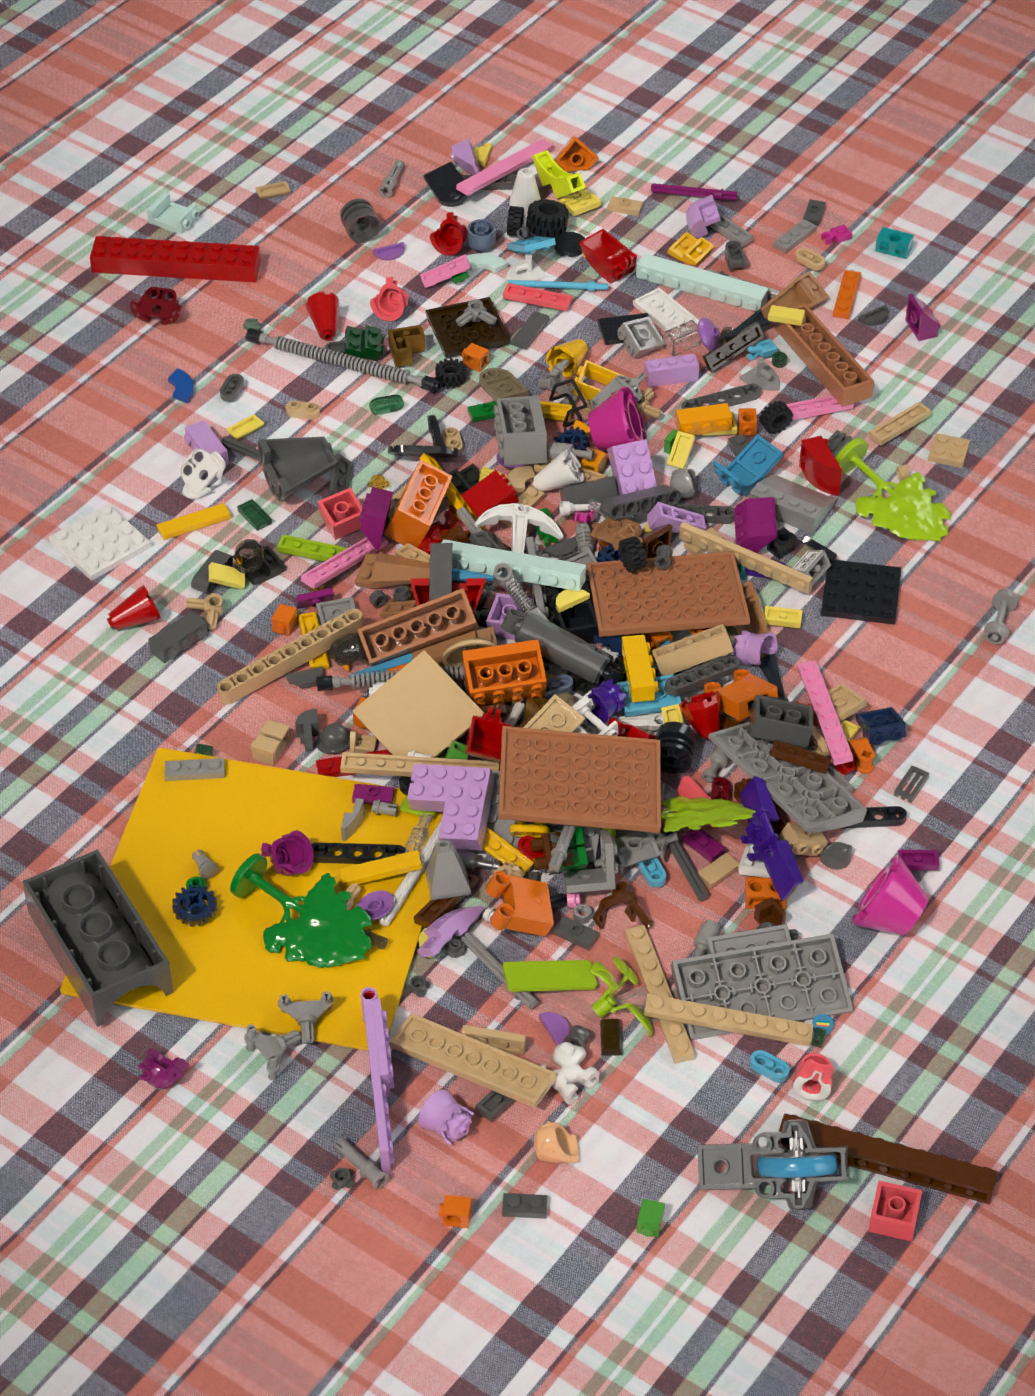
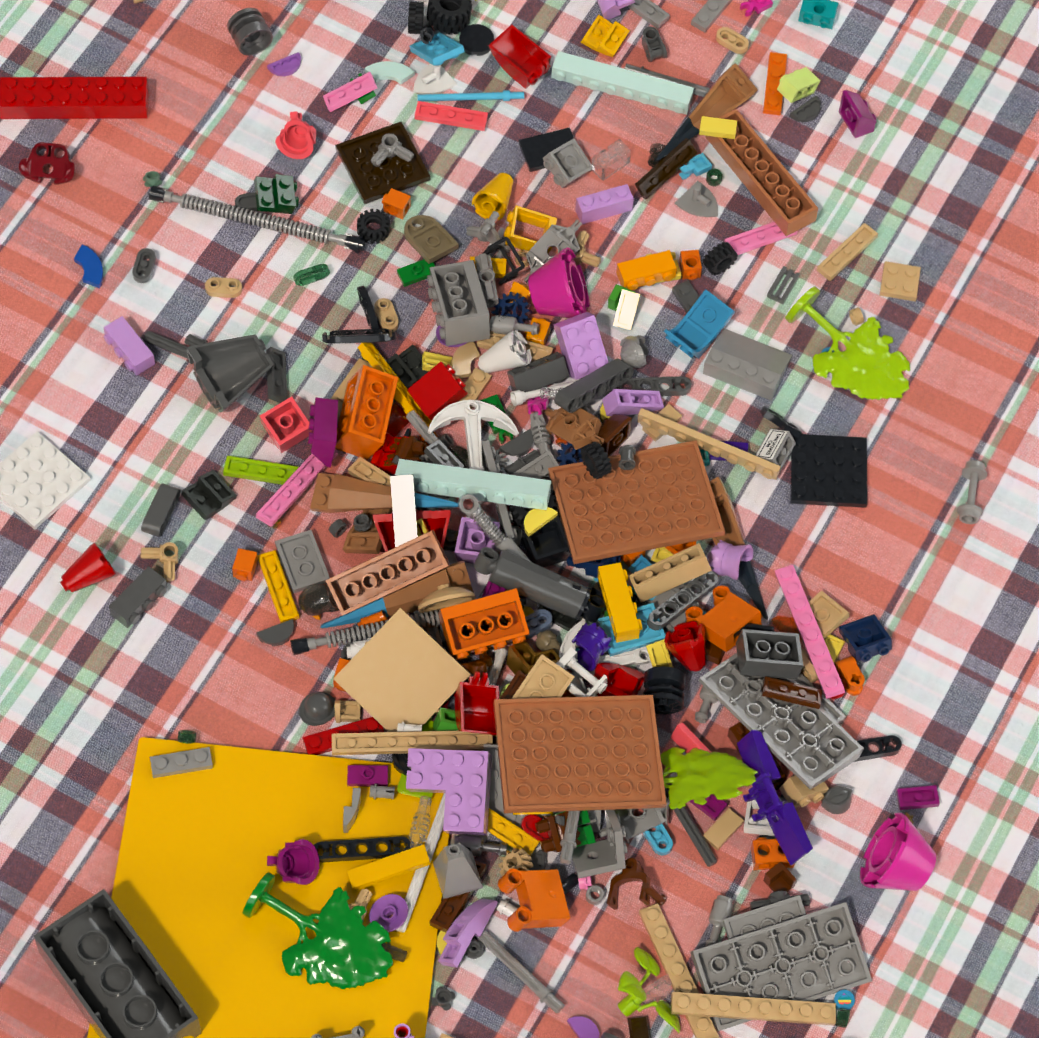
camera: 10 degrees left, 15 degrees up
(171, 215) = (43, 35): light aqua panel -> none
(193, 521) = (130, 444): yellow tile -> none
(194, 485) = (124, 400): white piece -> none
(194, 881) = (207, 910): green plate -> none
(194, 905) = (215, 935): dark blue gear -> none
(206, 867) = (210, 880): light grey pin -> none
(226, 576) = (177, 516): light yellow tile -> none
(245, 427) = (165, 315): light yellow tile -> none
(250, 554) = (199, 488): clear smoke piece -> none
(254, 514) = (193, 430): clear green tile -> none
(270, 742) = (253, 721): tan piece -> none
(288, 657) = (257, 621): tan beam -> none
(306, 727) = (287, 696): dark grey brick -> none
(314, 597) = (272, 535): magenta plate -> none
(324, 313) = (229, 162): red cone -> none
(378, 481) = (316, 373): clear yellow plate -> none
(404, 342) = (318, 193): pearl gold brick -> none
(449, 236) = (348, 43): red helmet -> none
(481, 235) = (382, 39): sand blue piece -> none
(530, 330) = (449, 160): dark grey tile -> none
(549, 975) = (572, 974): lime piece -> none
(550, 416) = (485, 272): none -> light grey piece
(576, 933) = (591, 918): dark grey plate -> none
(663, 309) = (588, 123): white tile -> none
(708, 333) = (638, 153): medium lavender dish -> none
(724, 793) = (710, 737): dark red beam -> none
(747, 392) = (653, 242): dark grey beam -> none
(755, 523) = (714, 401): magenta slope -> none
(782, 544) = (742, 425): black brick -> none
(783, 617) = (753, 511): light yellow plate -> none
(820, 465) = (772, 318): red piece -> none
(868, 293) = (798, 84): none -> yellowish green brick
(905, 794) = (896, 718): dark grey tile -> none

